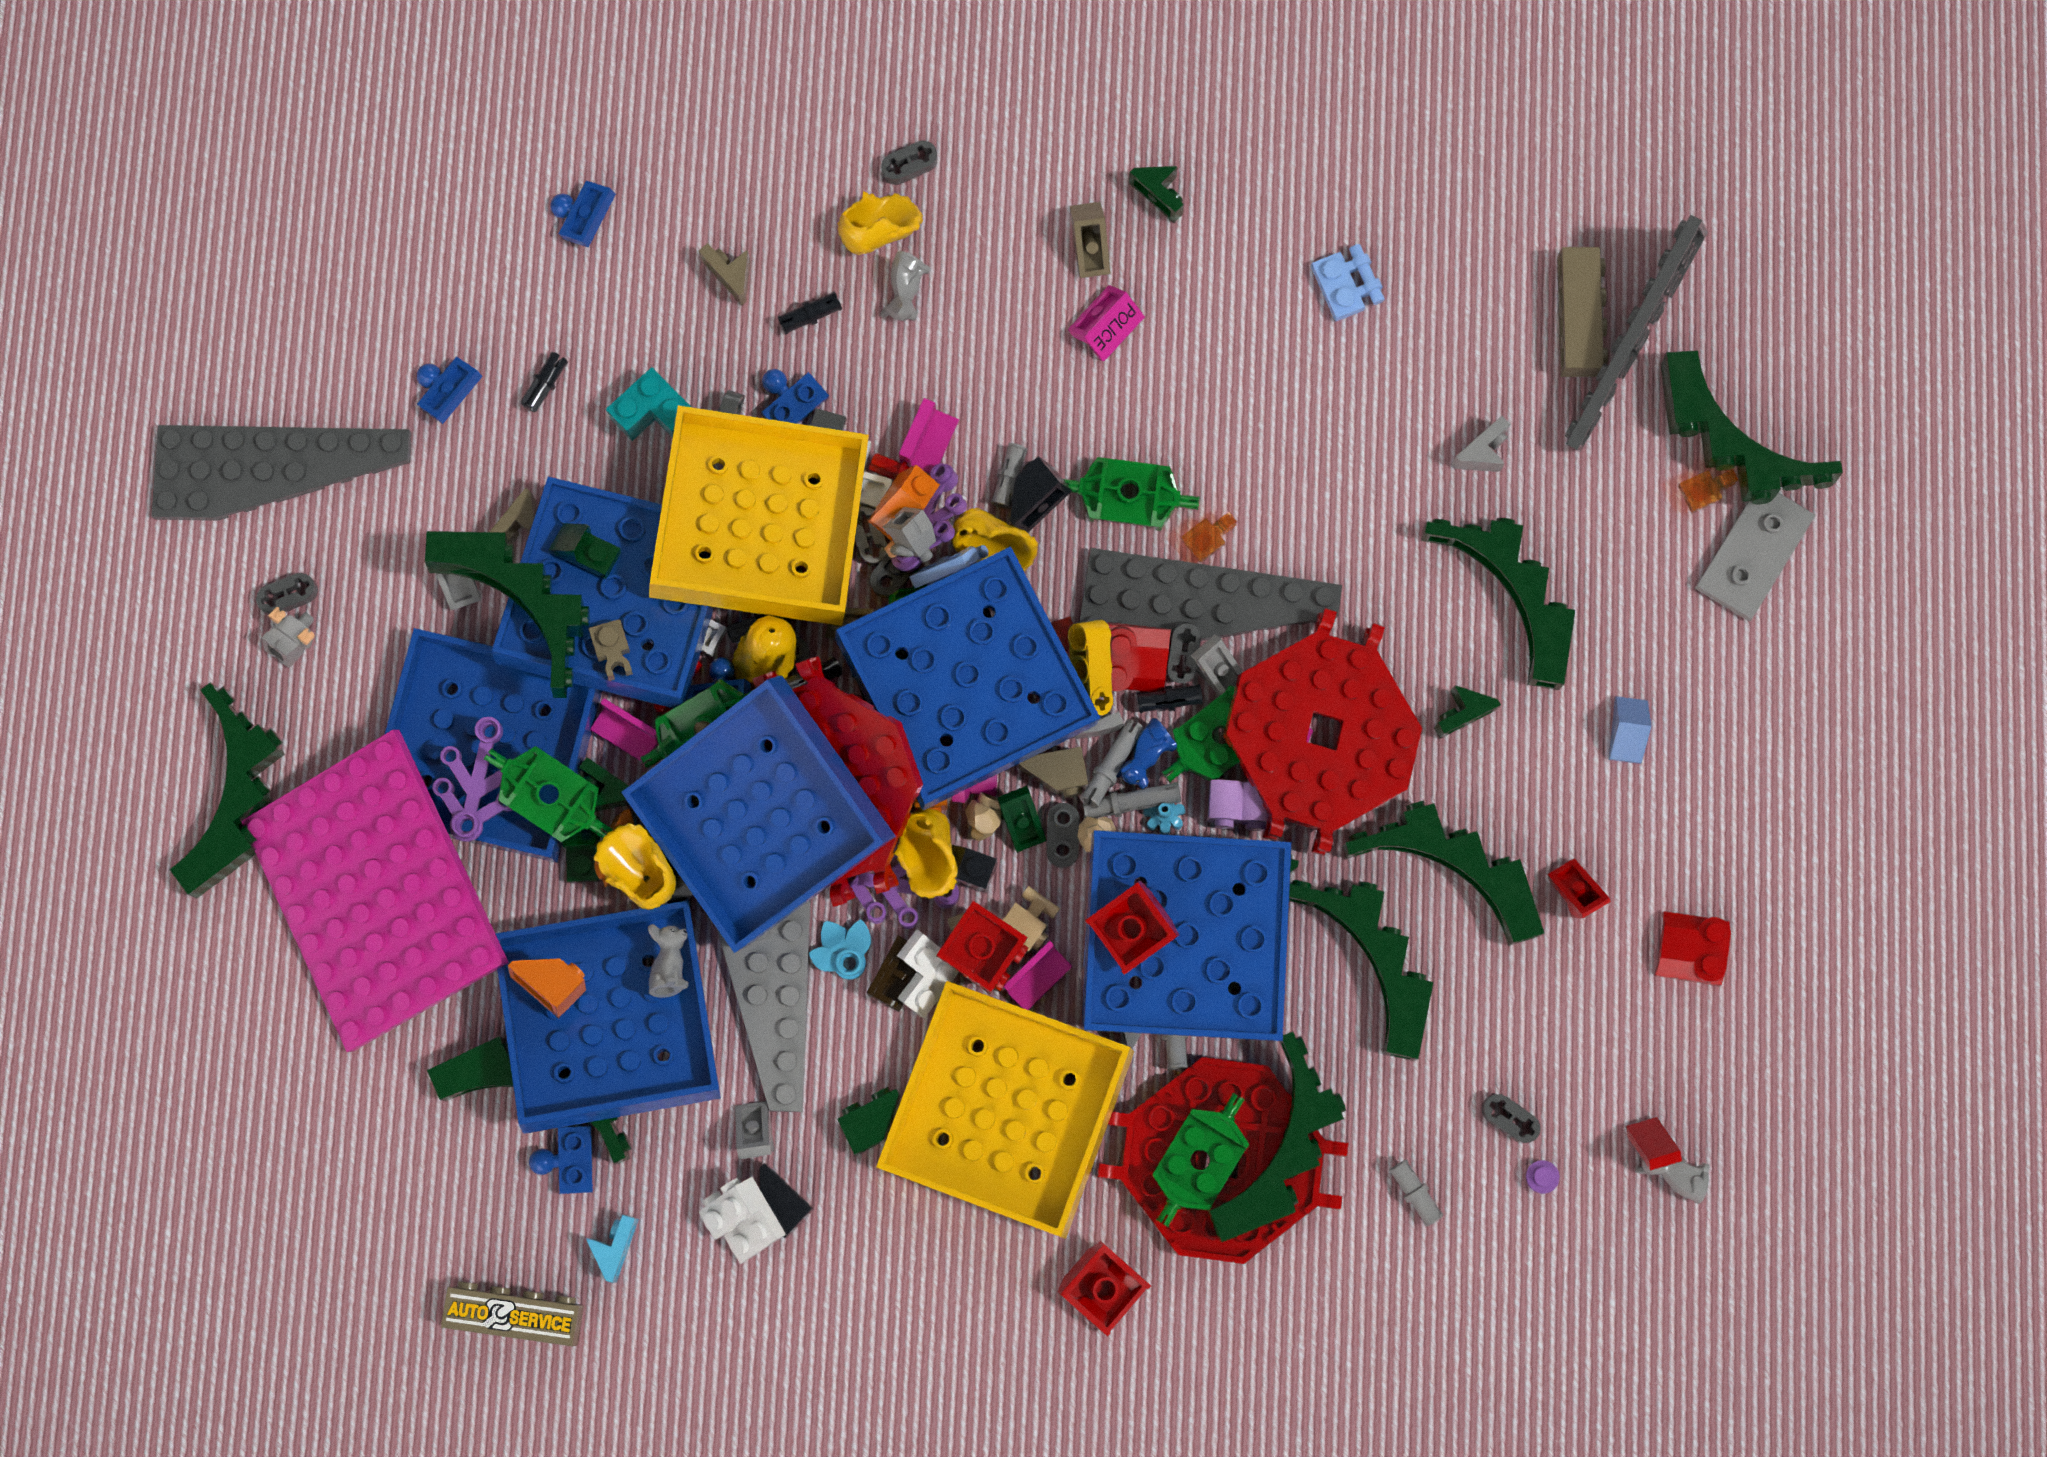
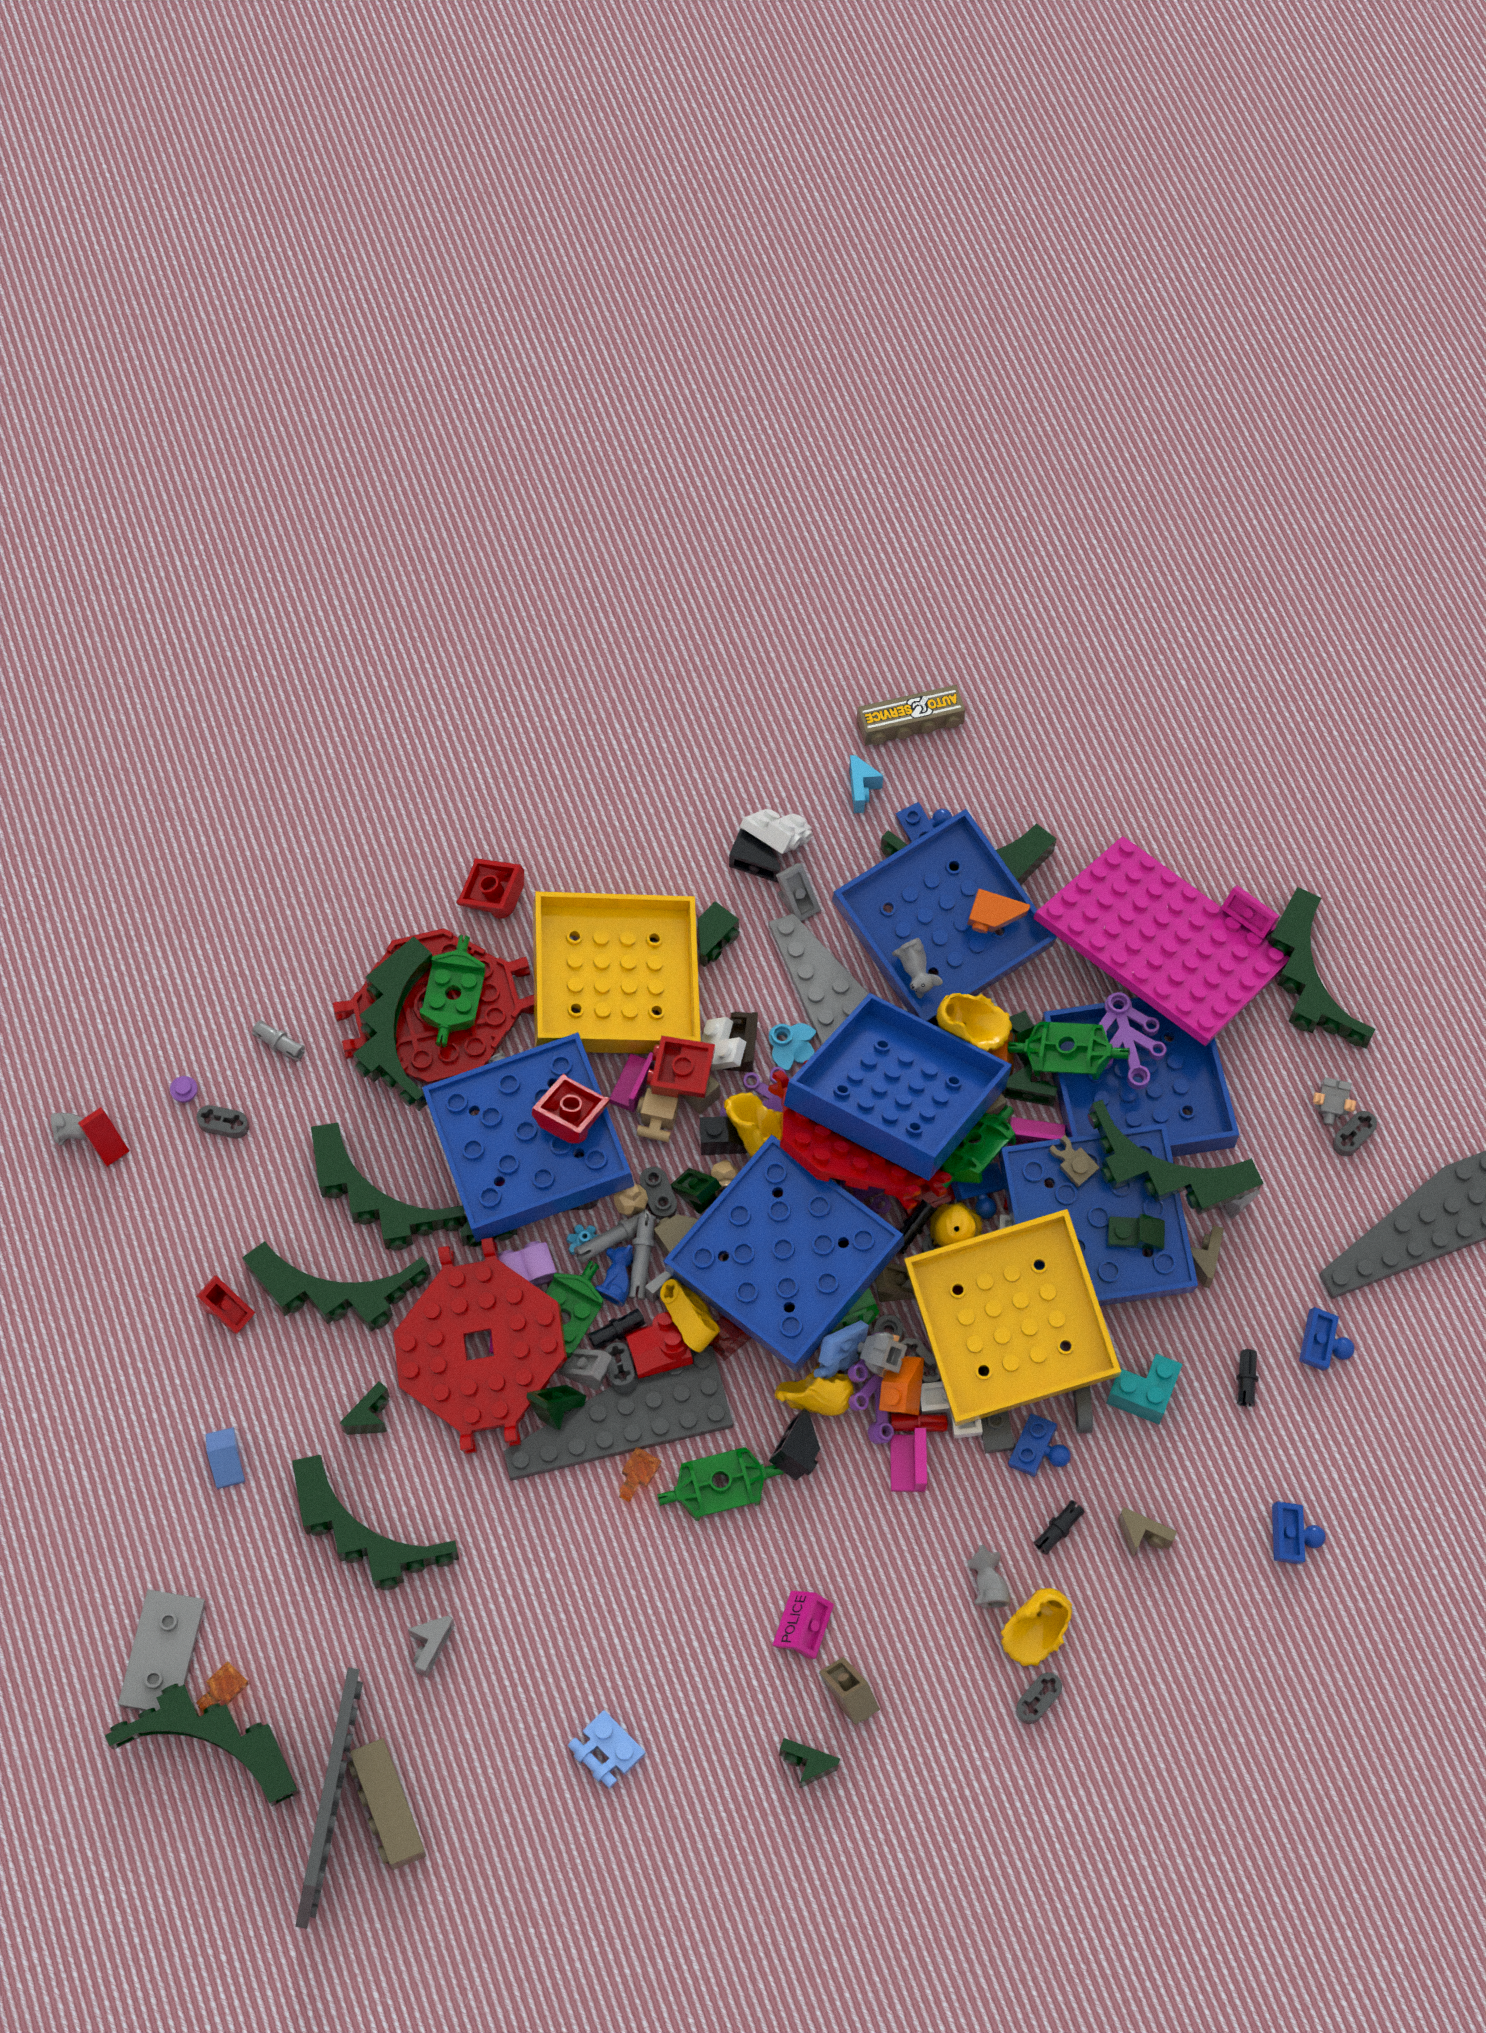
camera: 155 degrees right, 15 degrees down
(258, 887) = (1250, 912): none -> dark pink panel
(1006, 475) = (827, 1457): light grey pin -> none
(1265, 637) = (553, 1402): none -> dark green slope
(1693, 948) = (115, 1303): red slope -> none

